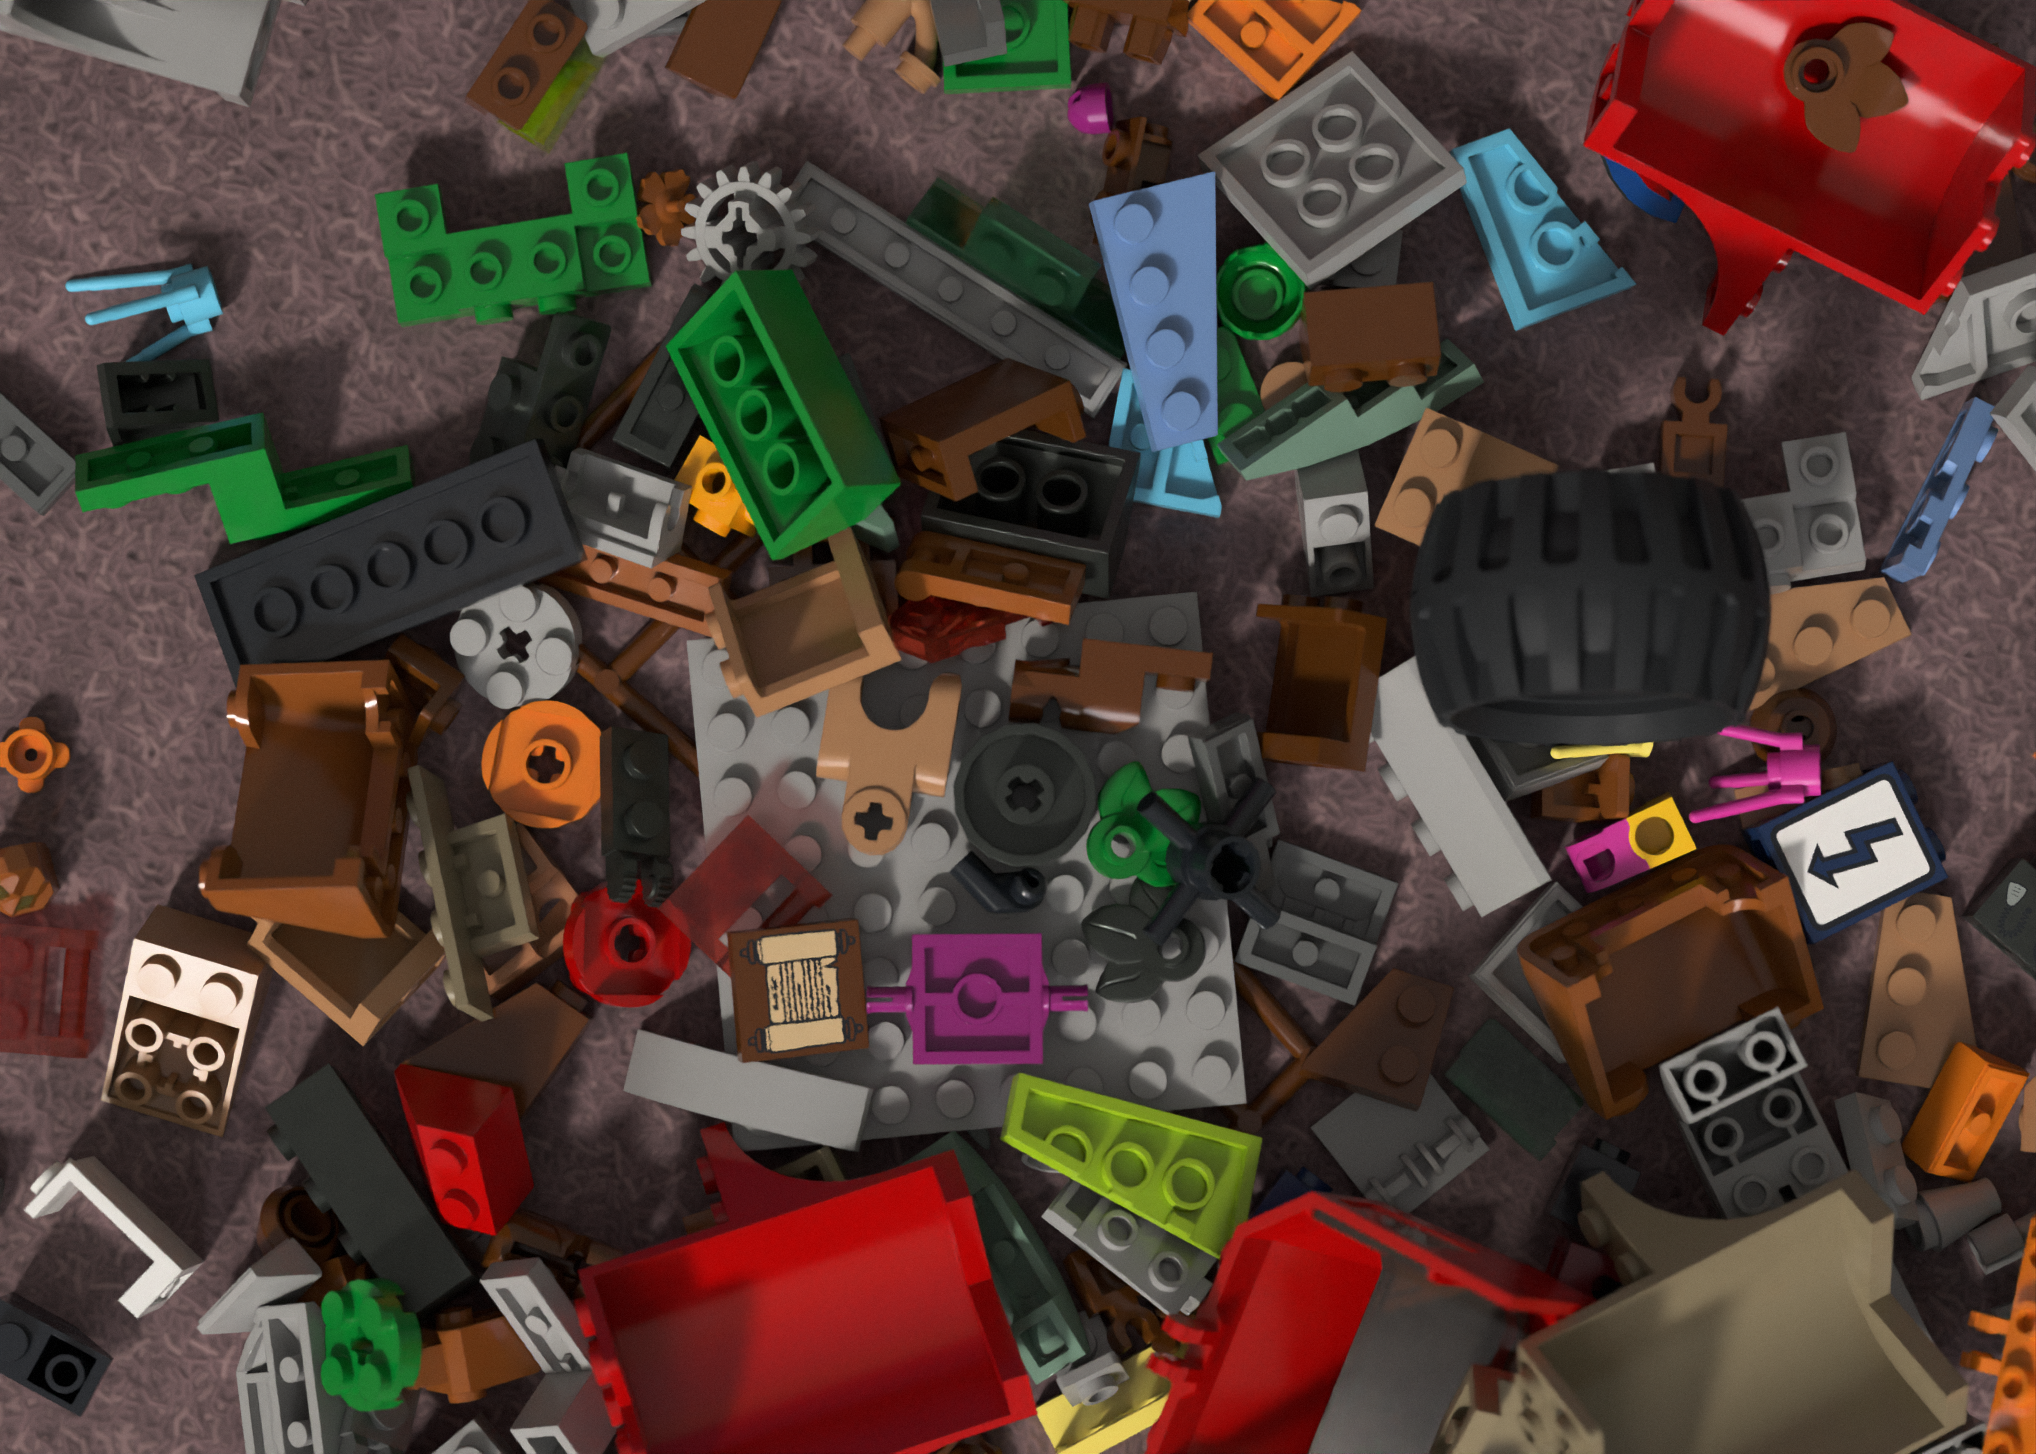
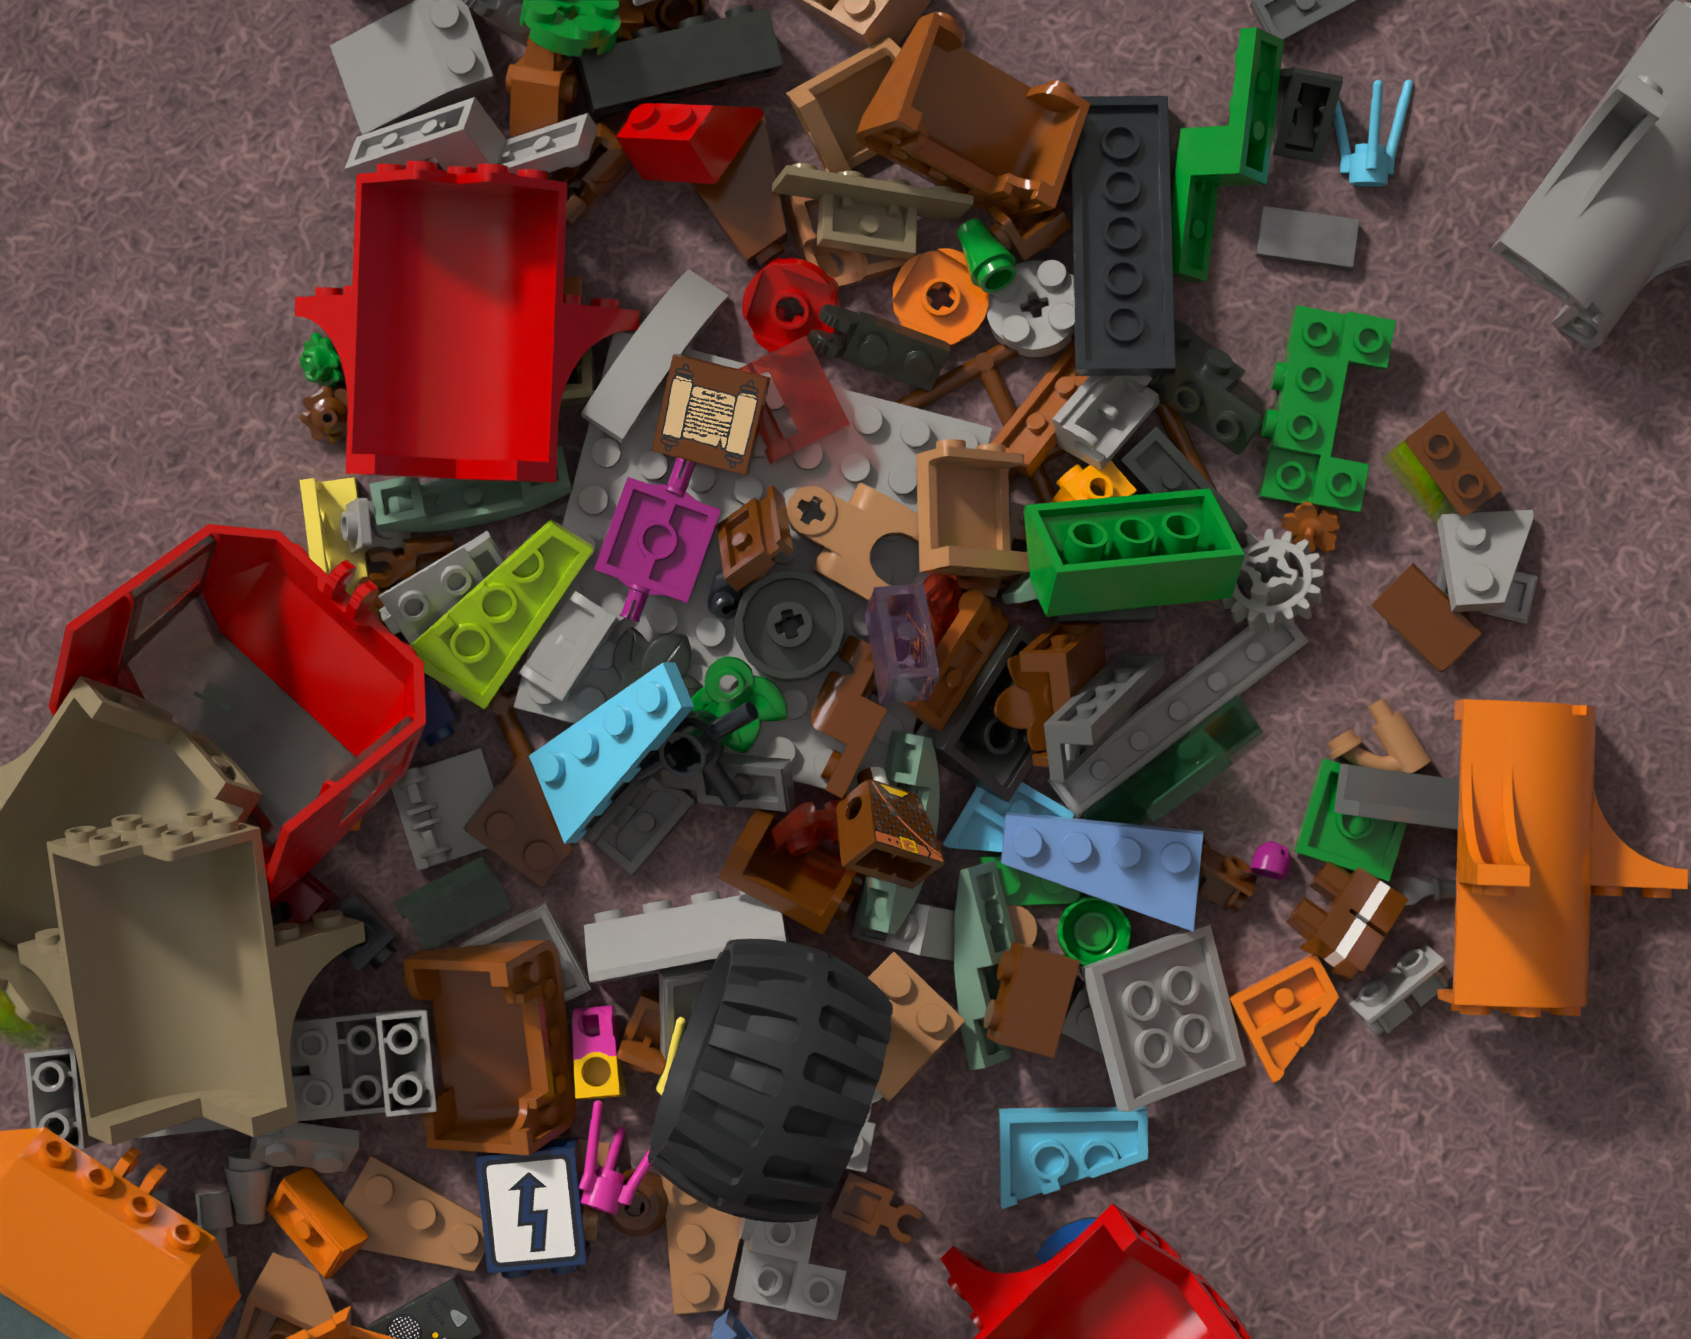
camera: 110 degrees right, 0 degrees up
(308, 341) = (1307, 237): none -> flat silver tile
(479, 723) = (987, 259): none -> green cone
(934, 877) = (753, 538): none -> reddish brown plate
(988, 379) = (1098, 710): none -> dark grey fence
(998, 647) = (901, 643): none -> brick
(1015, 468) = (1026, 703): none -> reddish brown plate
(1148, 1060) = (569, 646): none -> light grey hinge
(1226, 556) = (915, 768): none -> sand green slope
(1233, 584) = (886, 832): none -> reddish brown torso
(1256, 965) = (605, 748): none -> medium azure wing
(1258, 685) = (804, 829): none -> clear red wing

